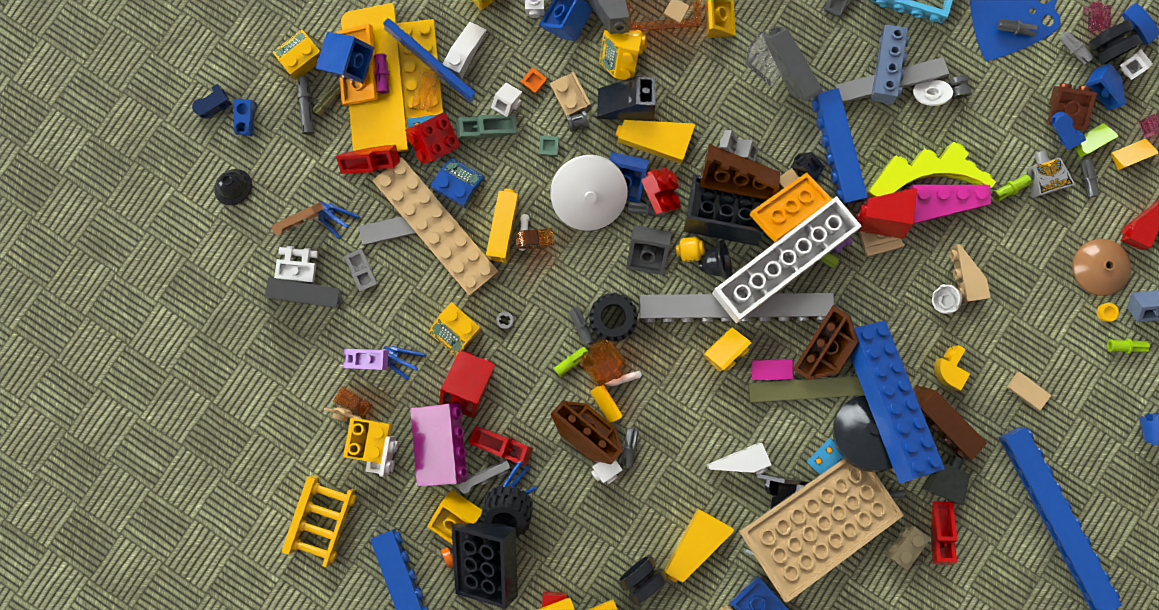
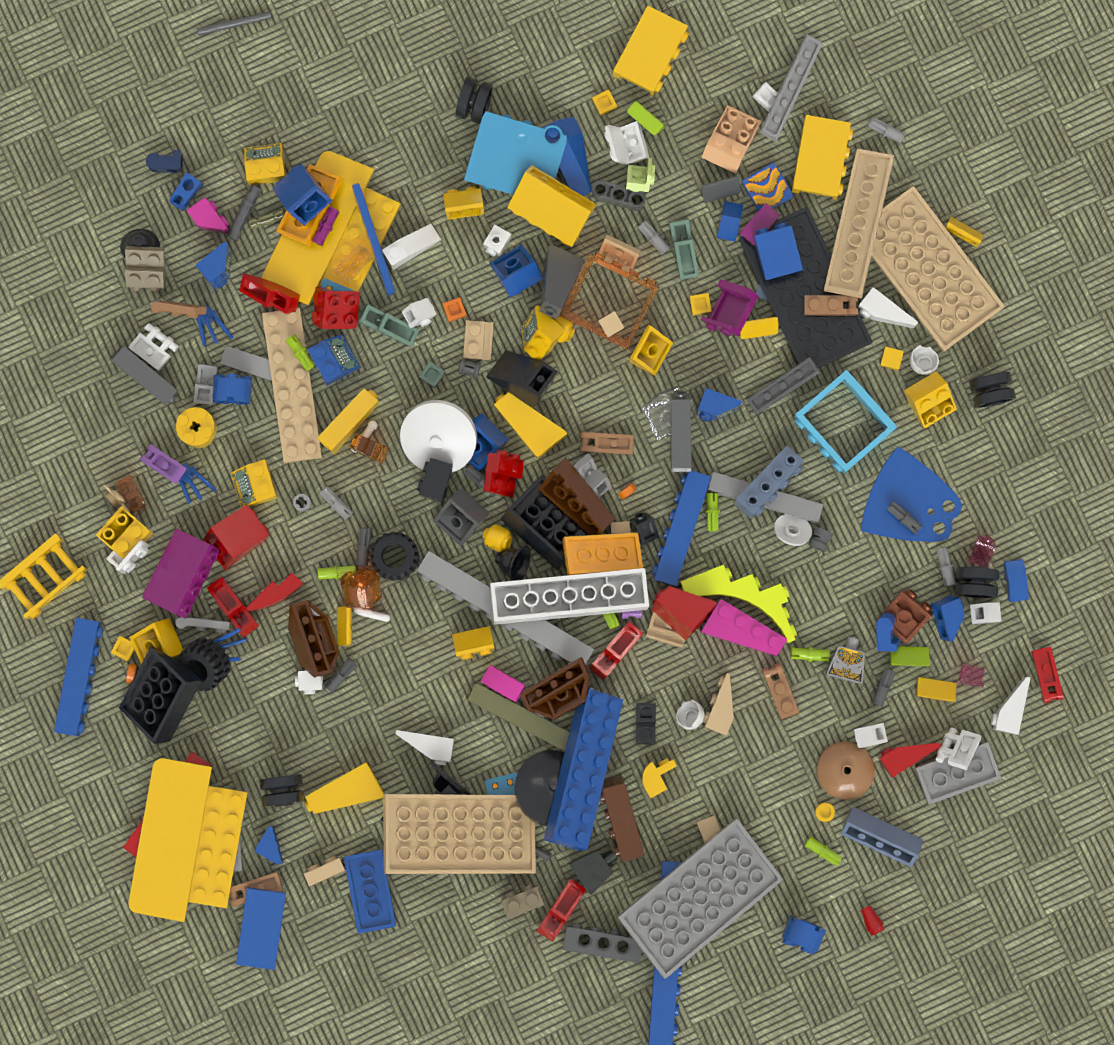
camera: 30 degrees right, 0 degrees up
(247, 201) = (145, 268): none -> dark tan plate
(275, 128) = (206, 218): none -> dark pink slope
(308, 163) = (217, 266): none -> blue slope
(364, 310) = (186, 422): none -> yellow brick
(386, 259) = (232, 389): none -> blue brick
(425, 192) = (300, 352): none -> lime axle
(427, 539) = (123, 648): none -> yellow tile
(530, 412) = (275, 594): none -> red slope
(534, 302) = (336, 503): none -> light grey axle
(610, 231) = (435, 481): none -> black brick
(732, 114) = (607, 443): none -> medium nougat plate
(774, 143) = (625, 492): none -> orange tile
(805, 23) = (716, 405): none -> blue slope
(850, 283) = (616, 650): none -> red slope
(856, 119) = (712, 512): none -> lime axle
(912, 330) = (645, 723): none -> black slope
(1006, 234) = (780, 691): none -> medium nougat plate
(1027, 533) = (572, 943): none -> dark grey brick
(1058, 451) = (699, 898): none -> light grey plate
(1108, 224) = (870, 735): none -> white brick

